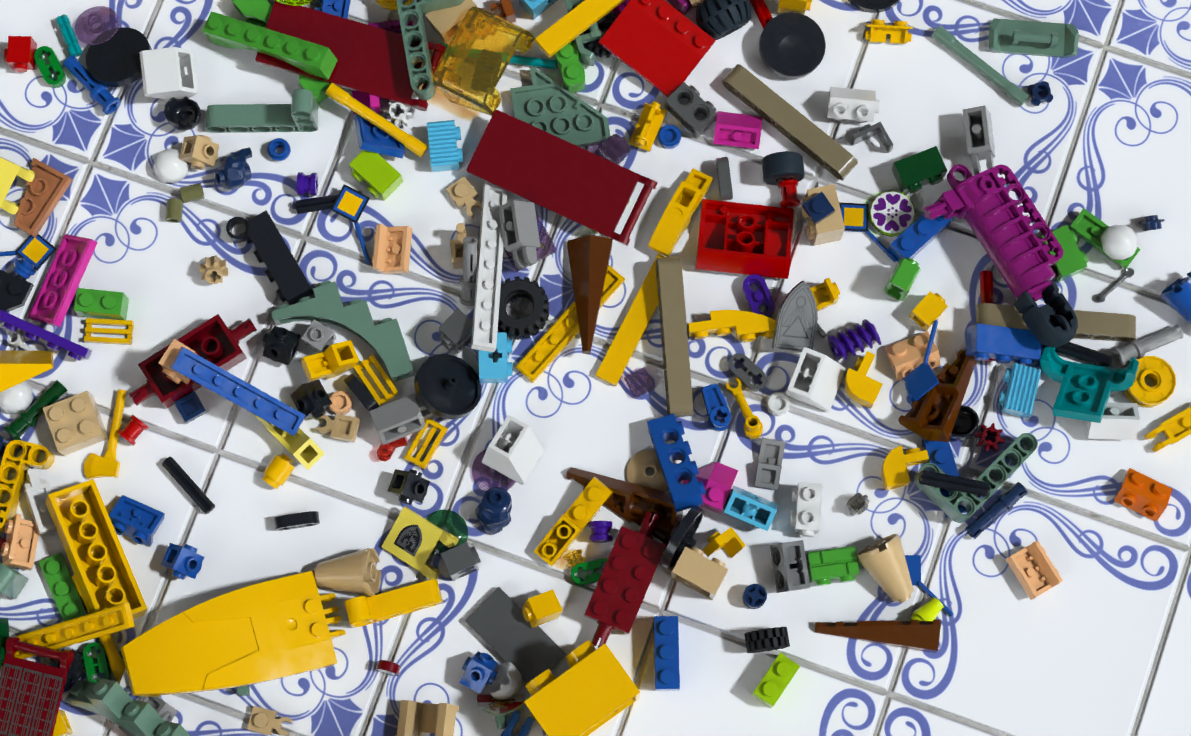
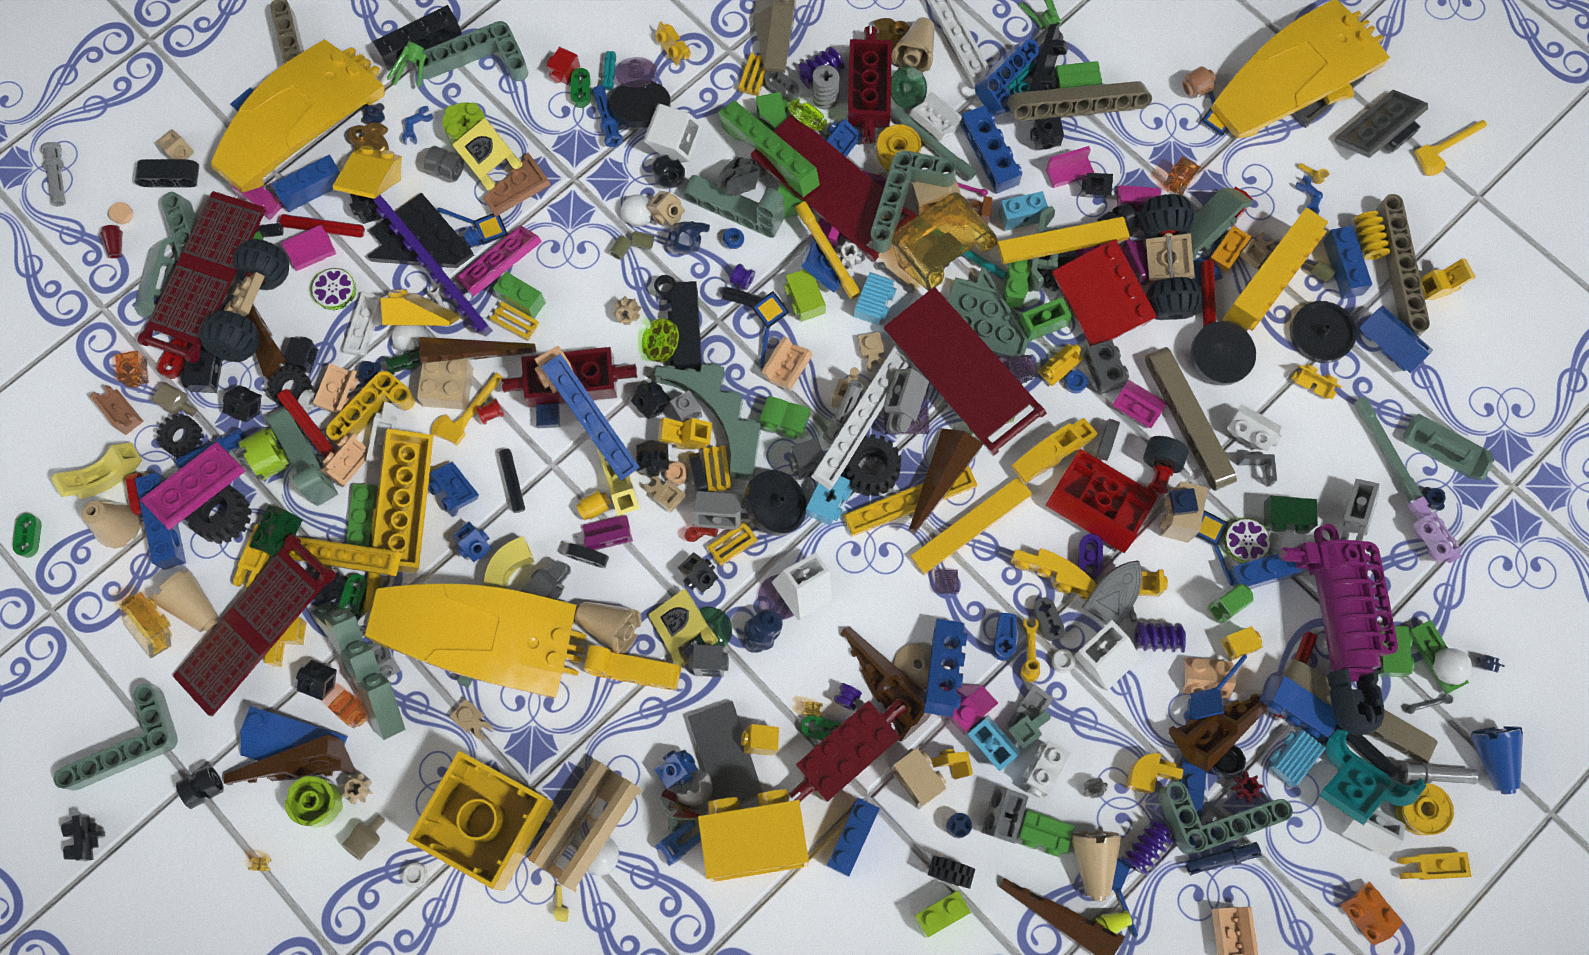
camera: 25 degrees right, 5 degrees down
(66, 389) = (453, 349): none -> reddish brown wedge
(224, 563) = (507, 561): none -> light yellow arch
(255, 86) = (740, 176): none -> dark grey hinge
(260, 283) = (660, 340): none -> clear neon green tile
(274, 563) = (548, 582): none -> dark grey hinge
(304, 490) = (607, 533): none -> magenta panel
(388, 668) = (598, 724): dark red tile -> none
(415, 301) = (784, 417): none -> bright green brick
(471, 117) = (909, 287): none -> dark grey hinge
(573, 521) = (827, 676): yellow slope -> none
(613, 91) = (1045, 319): none -> bright green brick
(674, 336) = (997, 555): dark tan beam -> none
(682, 537) = (918, 738): black piece -> none
(775, 482) = (1027, 729): none -> sand green plate
(858, 385) = (1145, 680): yellow brick -> none
(927, 533) = (1148, 847): none -> dark purple piece
(954, 483) = (1196, 813): black axle -> none
(1054, 130) = (1434, 536): none -> lavender brick

